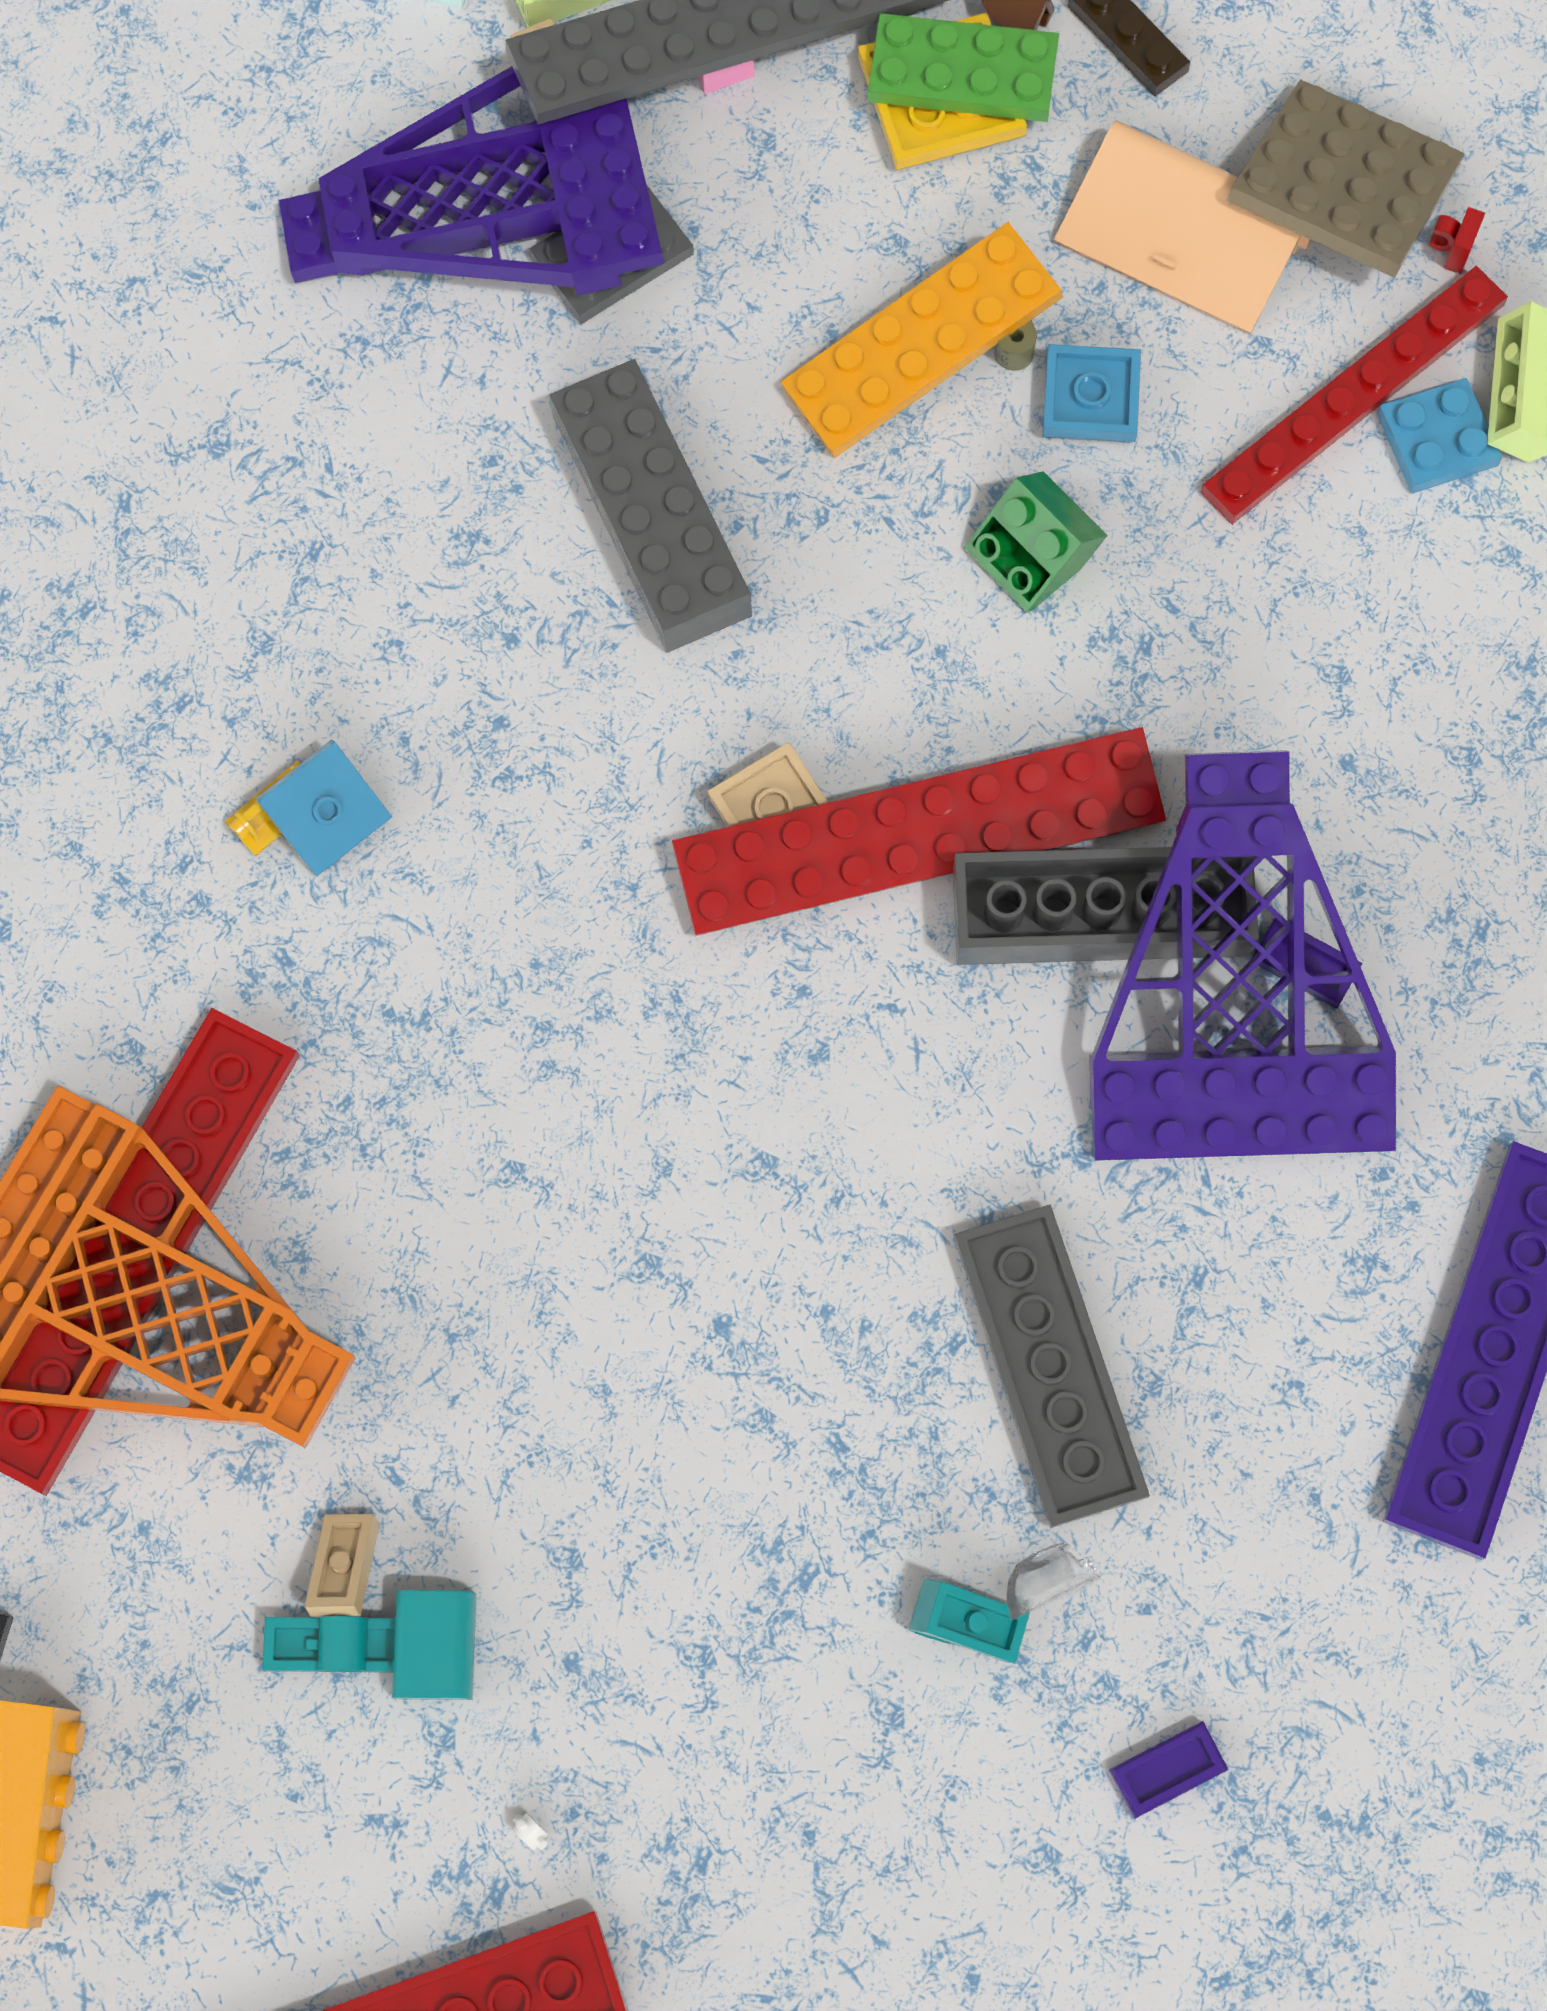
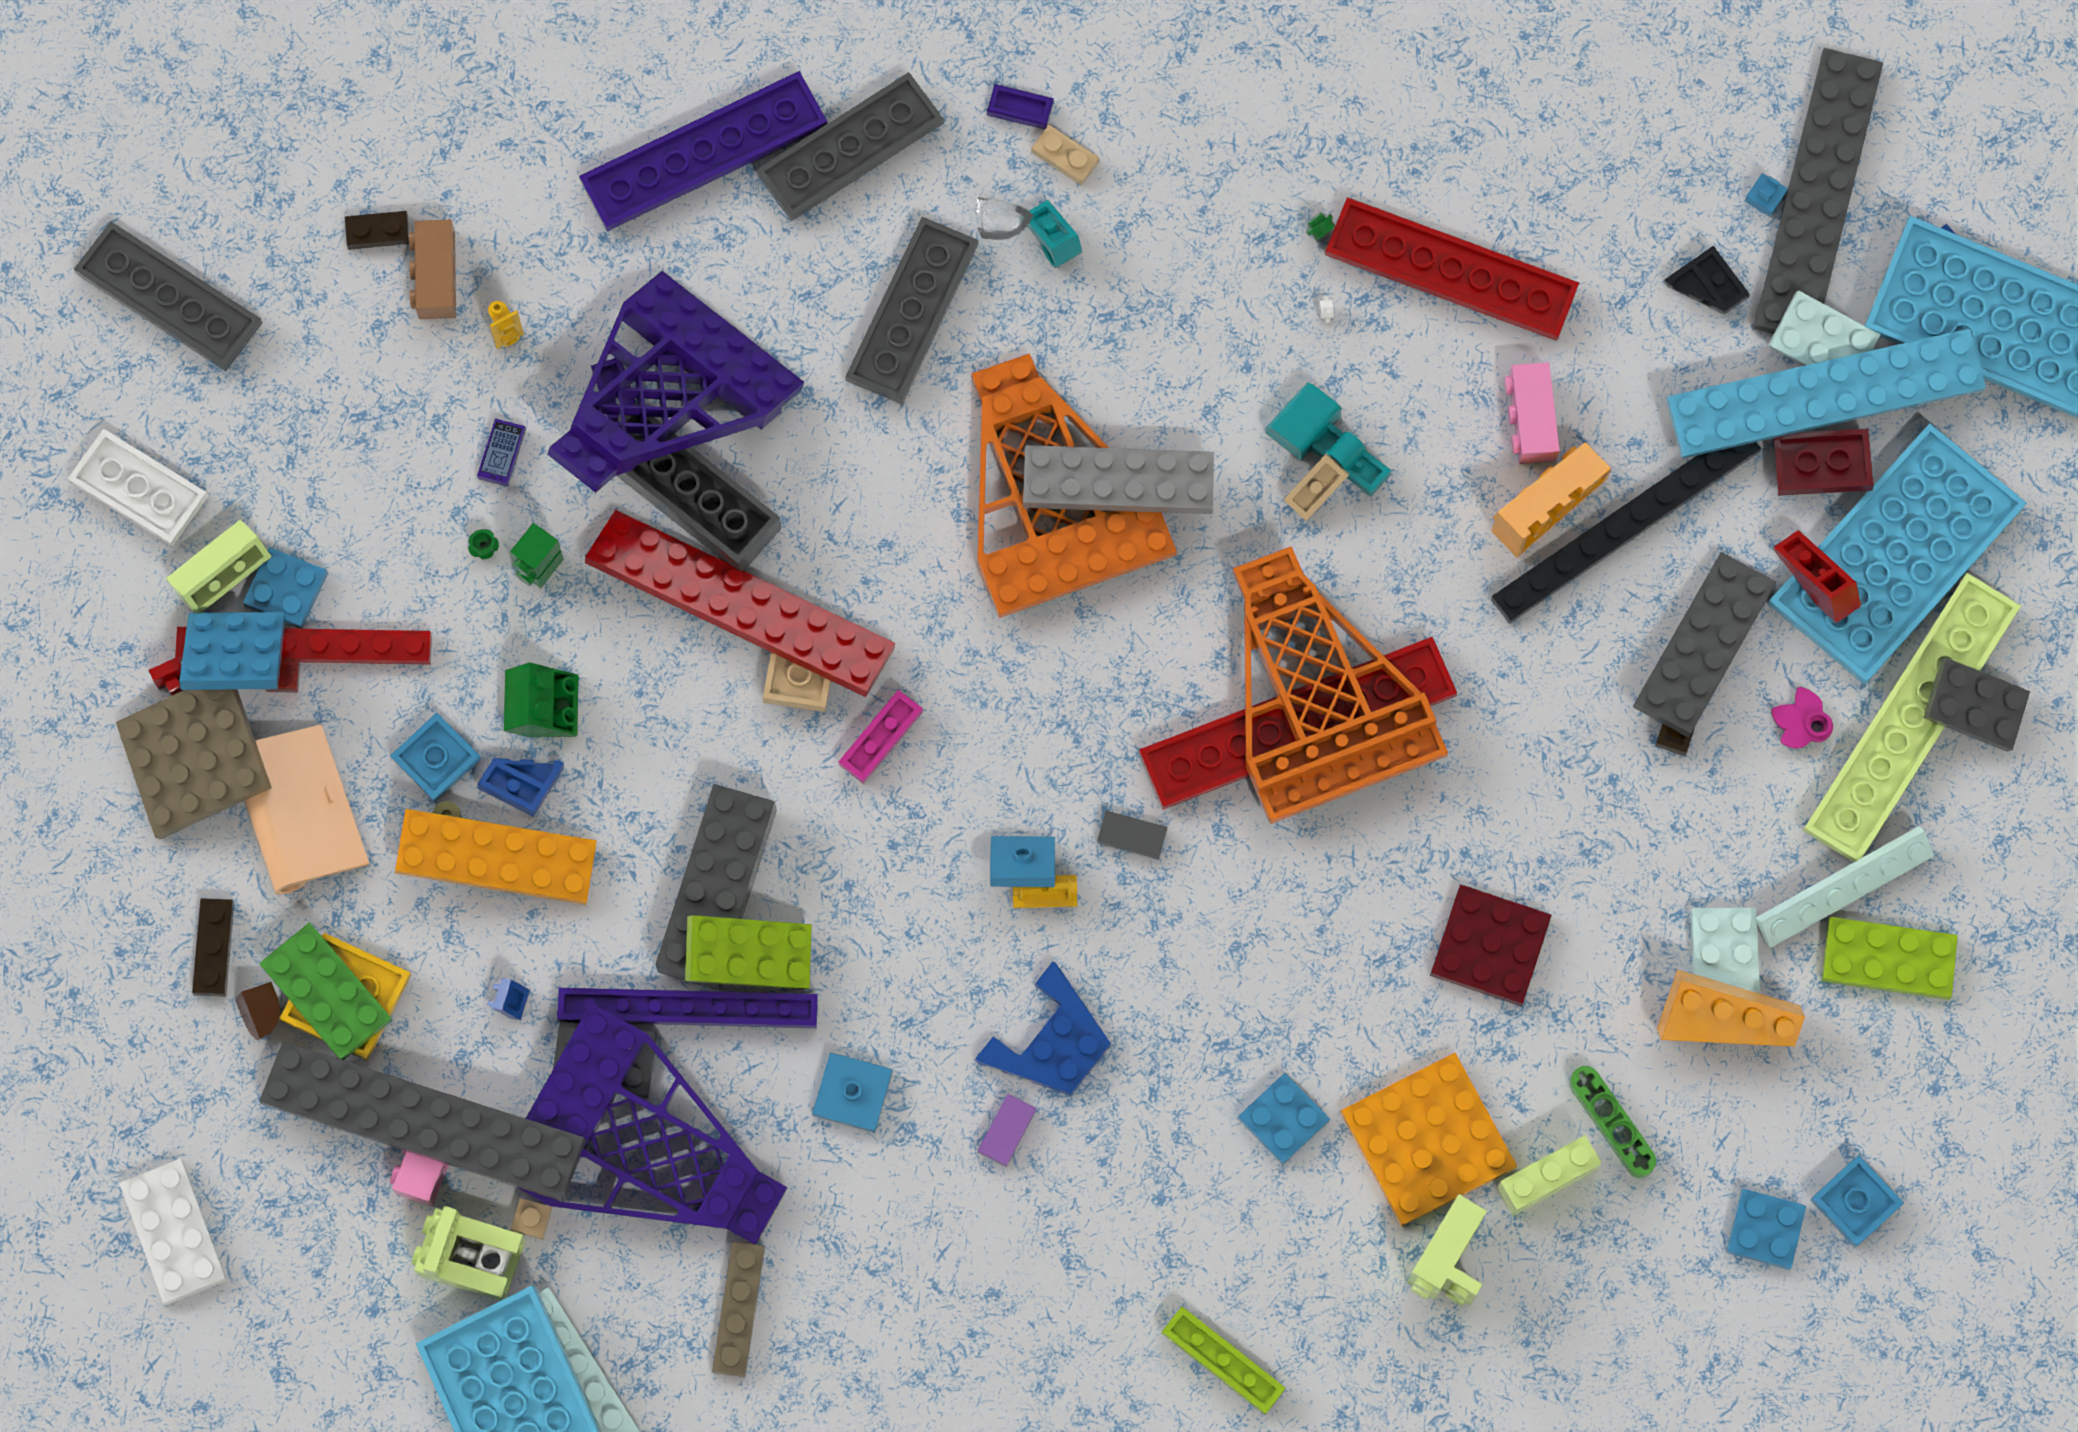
camera: 145 degrees left, 0 degrees up
(102, 525) = (1007, 1130): none -> medium lavender tile
(110, 657) = (1063, 1048): none -> blue wing
(138, 1918) = (1532, 413): none -> bright pink brick
(227, 954) = (1132, 835): none -> dark grey tile
(242, 133) = (738, 1309): none -> dark tan plate
(310, 429) = (852, 1092): none -> dark azure plate
(543, 450) = (748, 952): none -> lime plate
(573, 358) = (693, 1007): none -> dark purple plate
(574, 1224) = (1068, 556): none -> orange wing
(593, 1351) = (1118, 479): none -> light grey plate
(617, 820) = (880, 736): none -> dark pink plate
(631, 1944) = (1320, 225): none -> green plate
(766, 221) = (510, 998): none -> blue tile
(974, 442) = (520, 782): none -> blue wing
(1051, 1752) = (1065, 155): none -> tan plate
(1197, 677) = (536, 556): none -> green piece
(1280, 648) = (477, 538): none -> green plate
(1326, 1517) = (850, 146): none -> dark grey plate
(1343, 340) = (288, 676): none -> clear red plate
(1360, 779) = (501, 452): none -> tile
(1416, 296) = (232, 651): none -> dark azure plate
(1508, 908) = (506, 326): none -> yellow hinge

